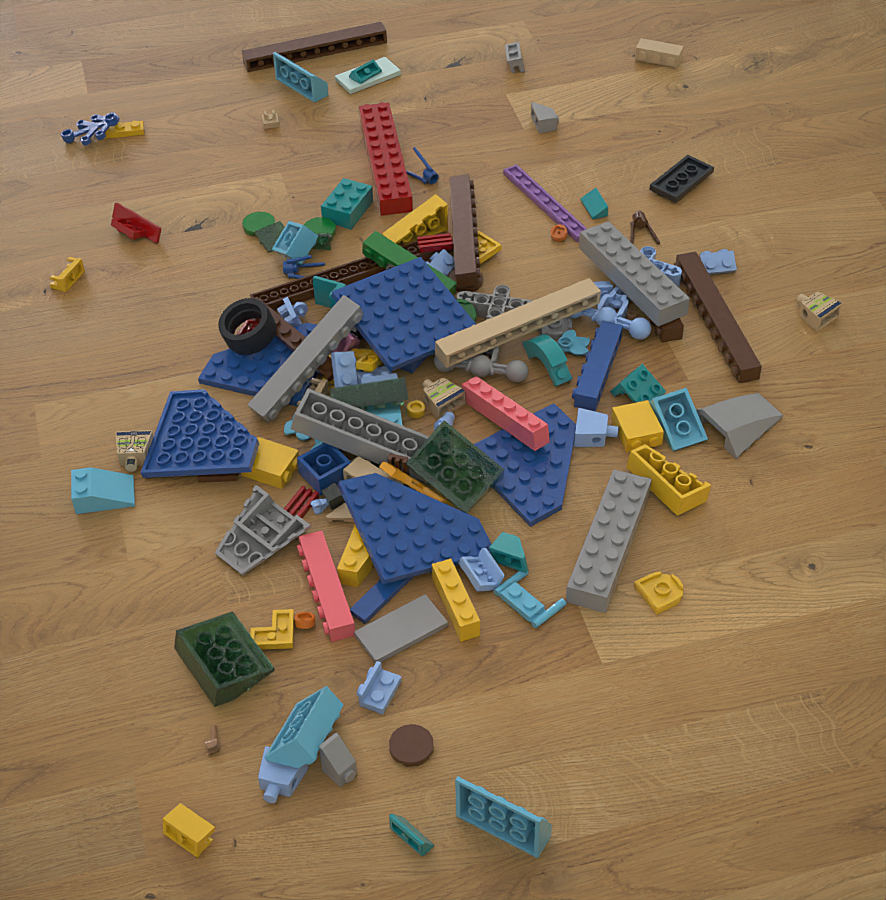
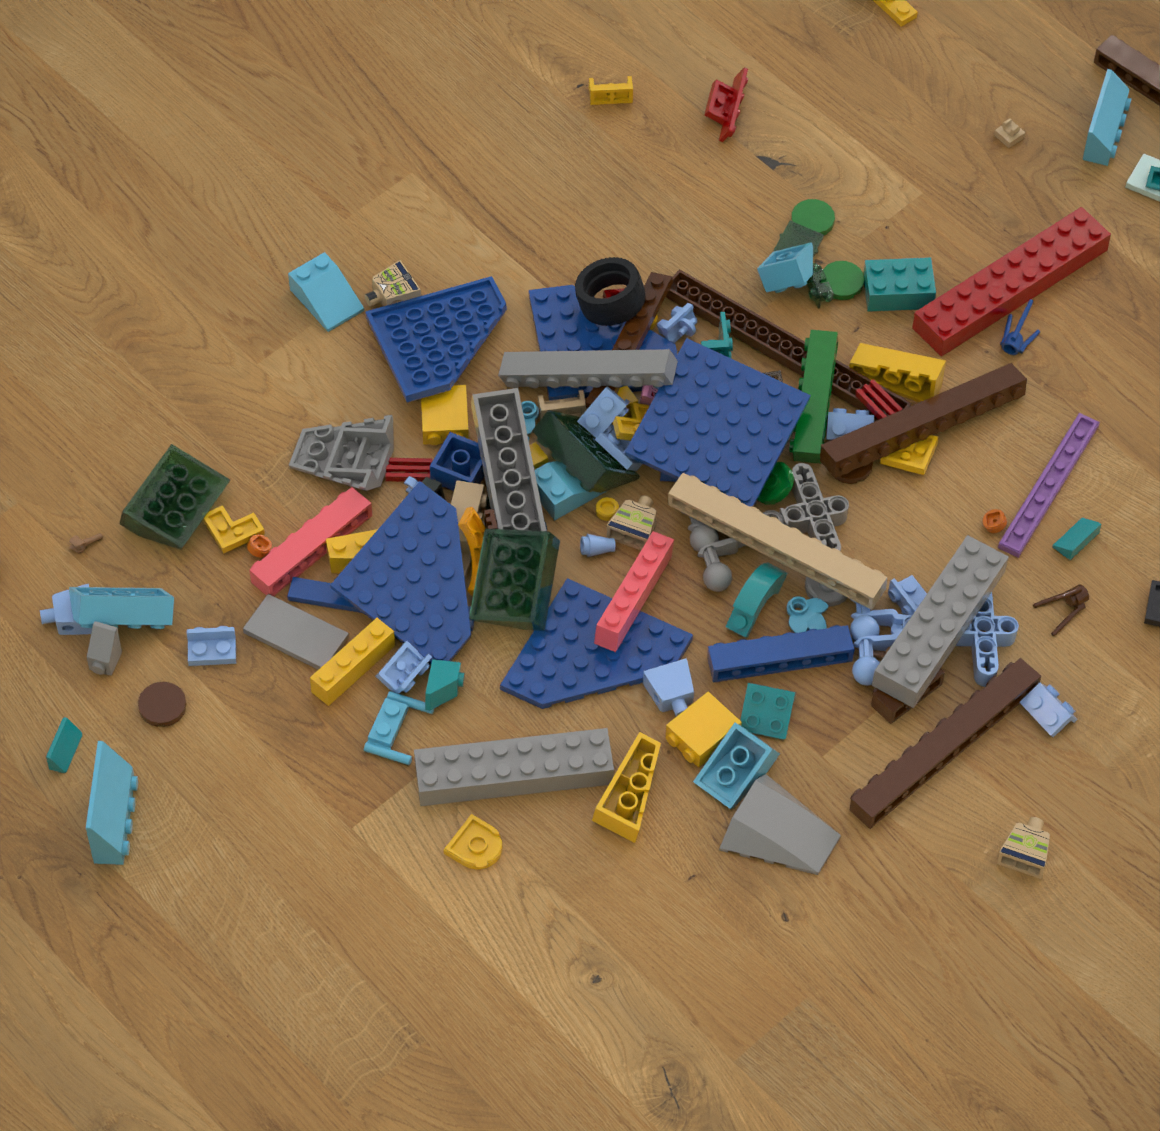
camera: 60 degrees right, 10 degrees up
(291, 266) = (756, 287): blue plant -> none

